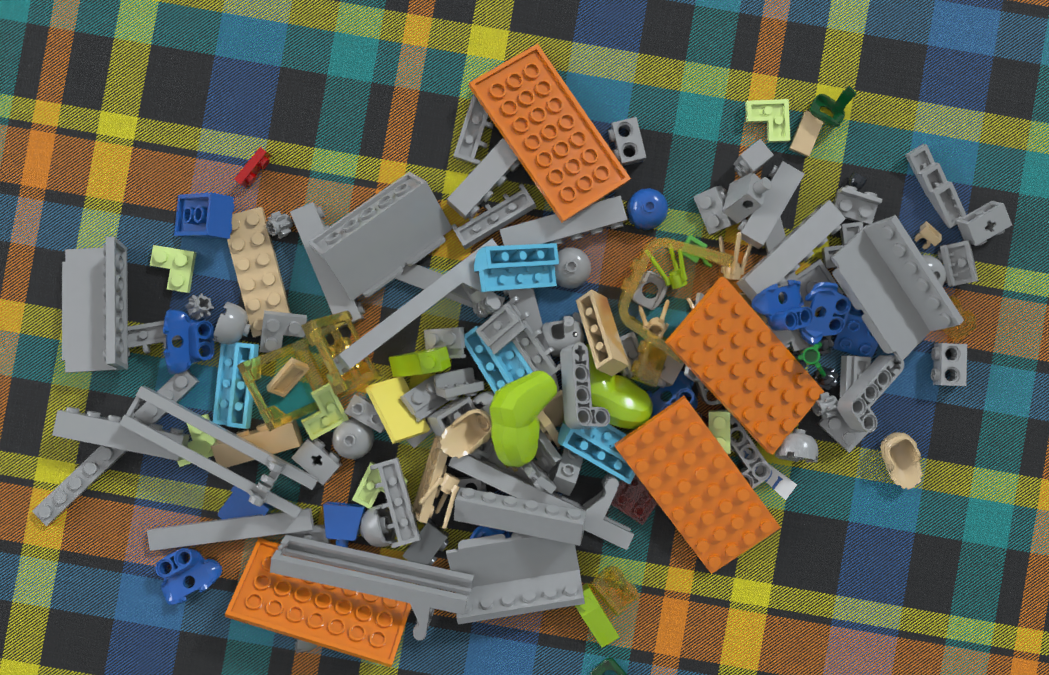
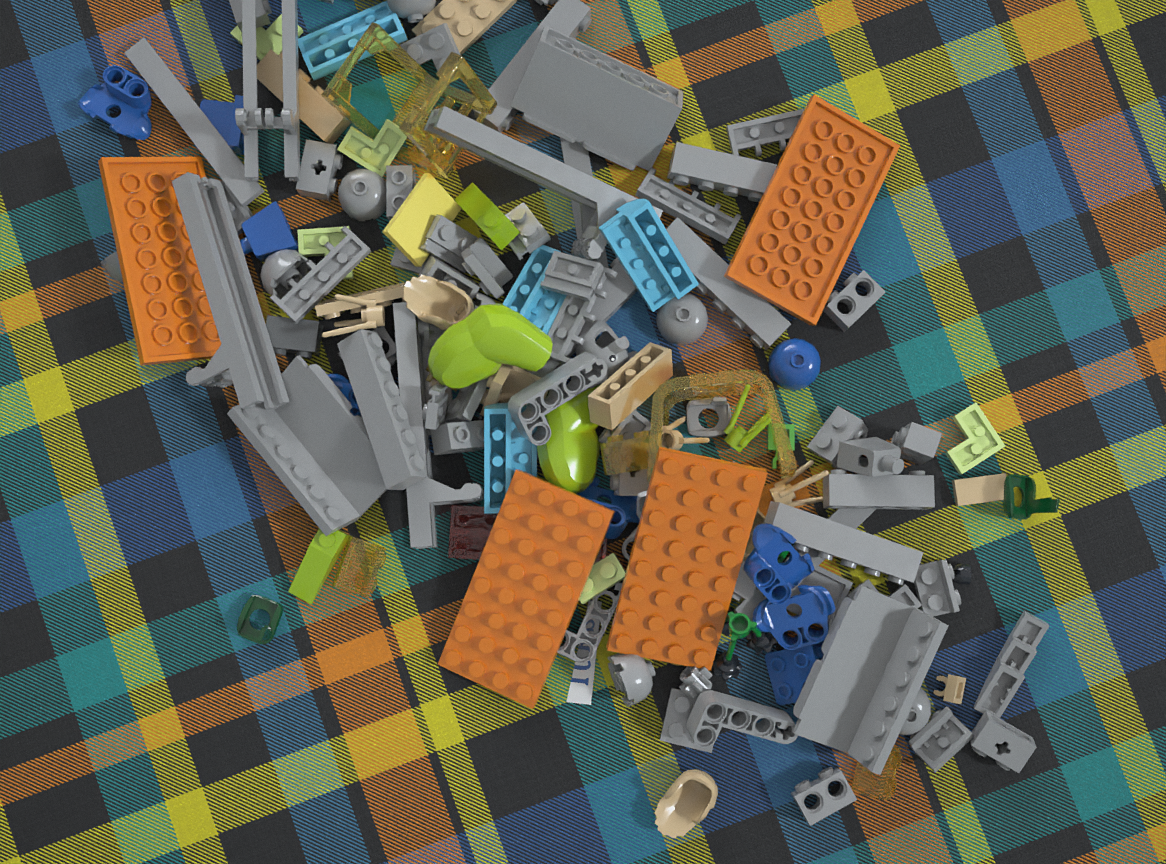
camera: 60 degrees right, 5 degrees down
(287, 377) = (389, 88): tan tile -> none
(851, 369) = (752, 687): light grey plate -> none

